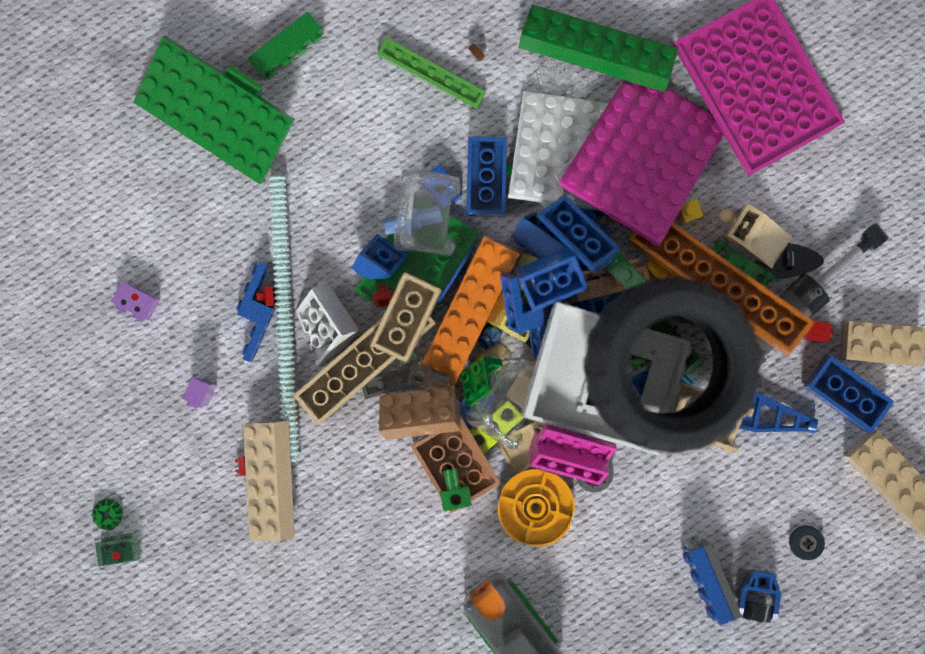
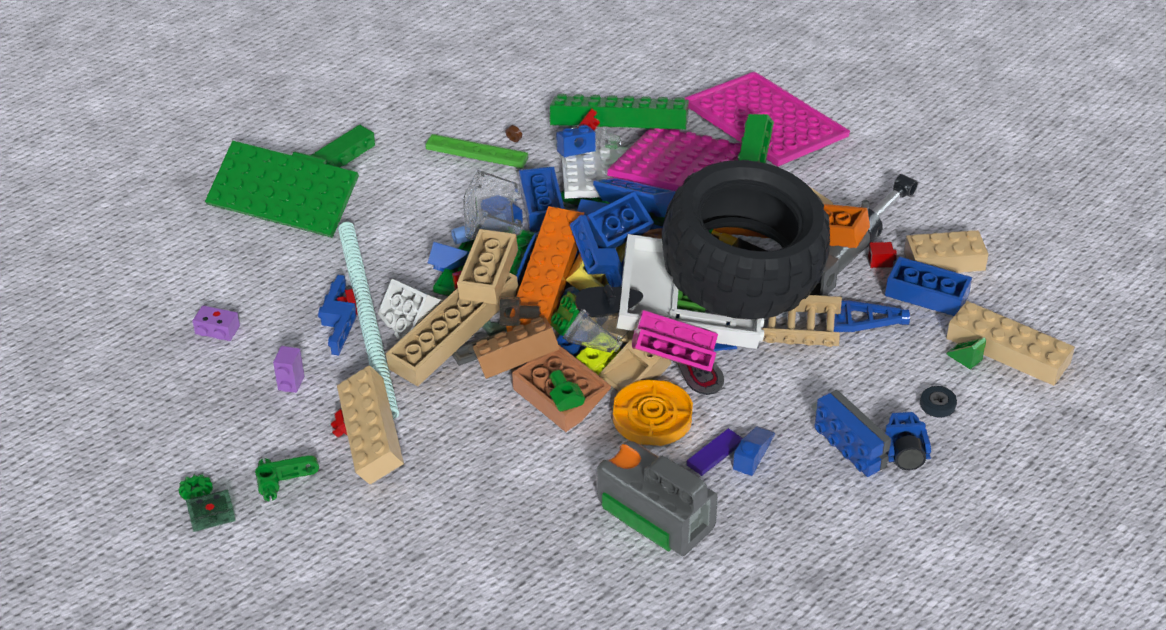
camera: 10 degrees left, 45 degrees down
(172, 531) = (270, 473): none -> green piece
(511, 393) = (604, 300): none -> black shield
(539, 97) = (585, 143): none -> blue brick
(558, 64) = (589, 120): none -> red tile
(582, 563) = (714, 452): none -> dark purple tile
(619, 569) = (752, 450): none -> blue slope
(728, 154) = (756, 138): none -> green brick
(855, 486) = (968, 352): none -> green slope

